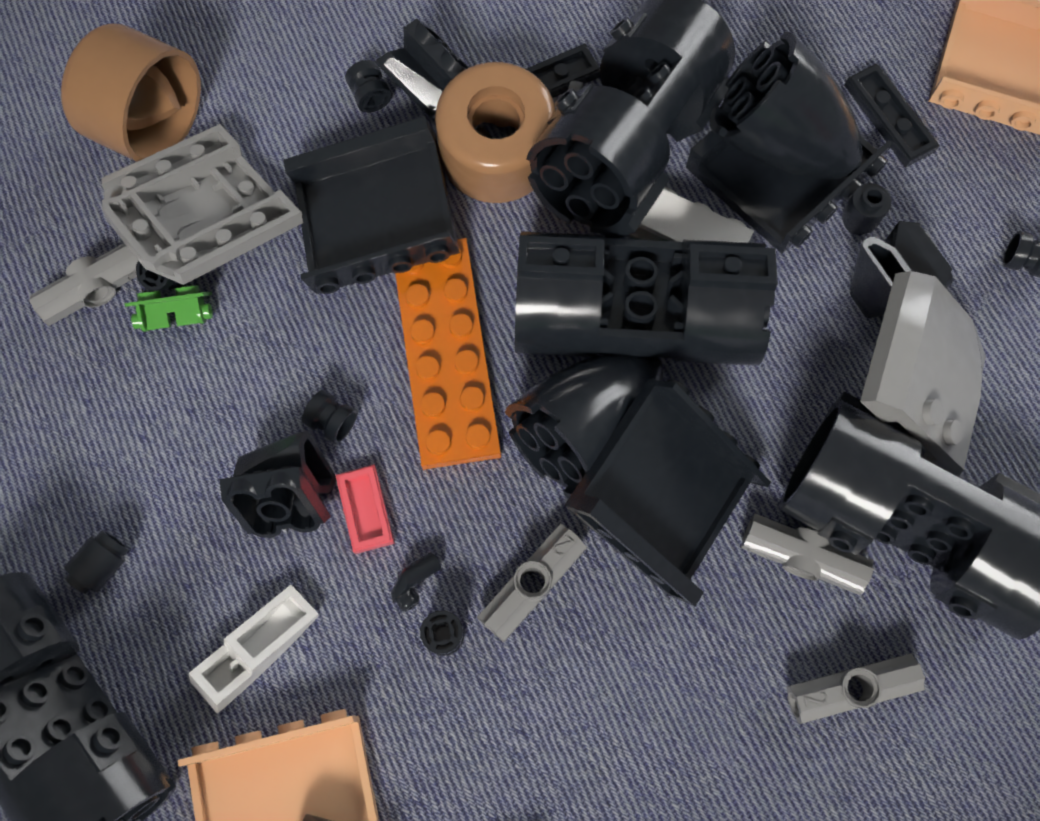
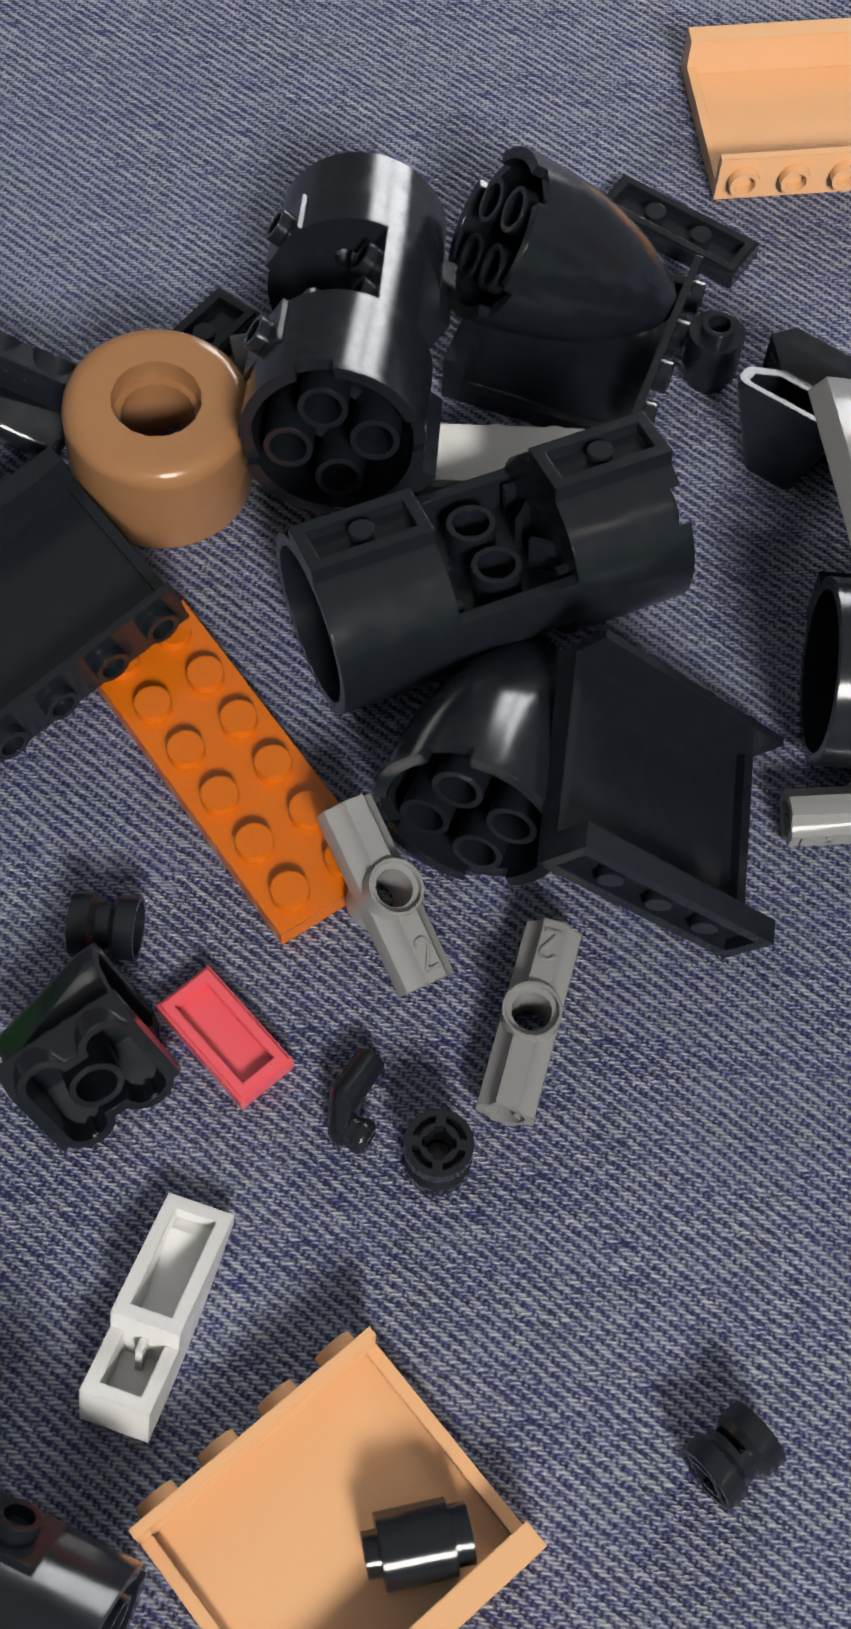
camera: 30 degrees left, 10 degrees down
(486, 499) = (370, 857): none -> light grey piece

